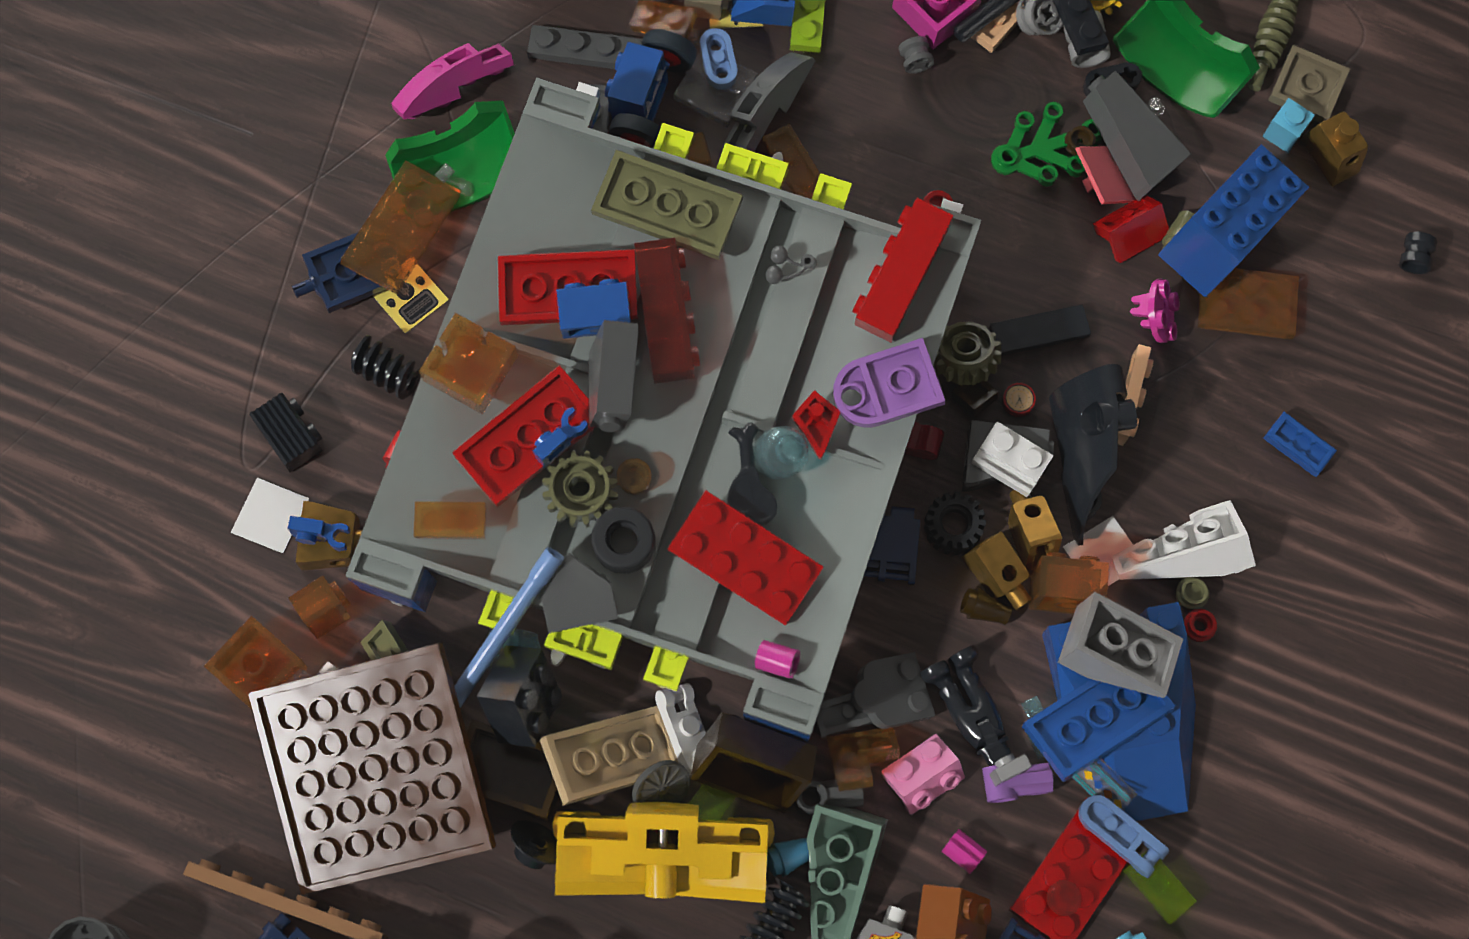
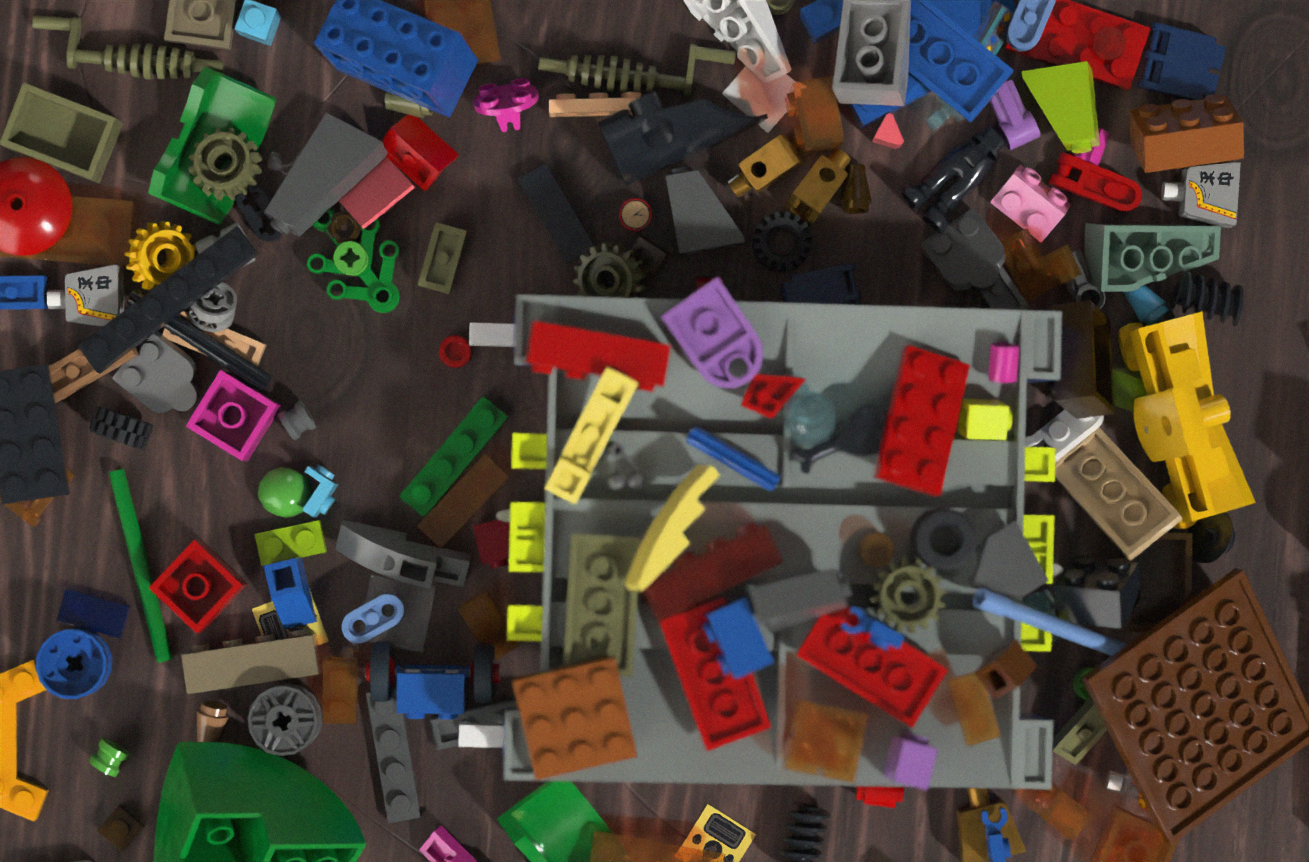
camera: 105 degrees left, 15 degrees up
(421, 436) = (910, 760): none -> medium lavender brick
(444, 174) = (589, 825): clear piece -> none
(476, 559) = (1005, 669): none -> reddish brown brick
(571, 148) = (574, 717): none -> dark orange plate
(662, 783) = (1122, 438): dark grey wheel -> none
(709, 273) = (665, 537): none -> light yellow slope
(727, 625) = (984, 419): none -> neon yellow brick
(765, 367) = (732, 458): none -> blue axle
(827, 241) = (591, 434): none -> light yellow slope
(834, 162) = (453, 457): none -> green plate
(840, 53) = (321, 498): none -> medium azure bracket
(854, 28) = (284, 492): none -> bright green hair
(923, 845) = (1096, 184): none -> red plate
(1008, 768) = (1012, 124): light grey plate -> none
(1012, 459) = (709, 203): white plate -> none
(1014, 835) = (1068, 103): none -> lime slope
(1027, 218) = (442, 258): none -> olive plate
(1033, 654) = (889, 133): none -> coral slope
(1048, 145) = (356, 263): none -> bright green wheel
(1155, 427) = (638, 77): none -> olive piece
(1166, 59) = (218, 148): none -> olive gear

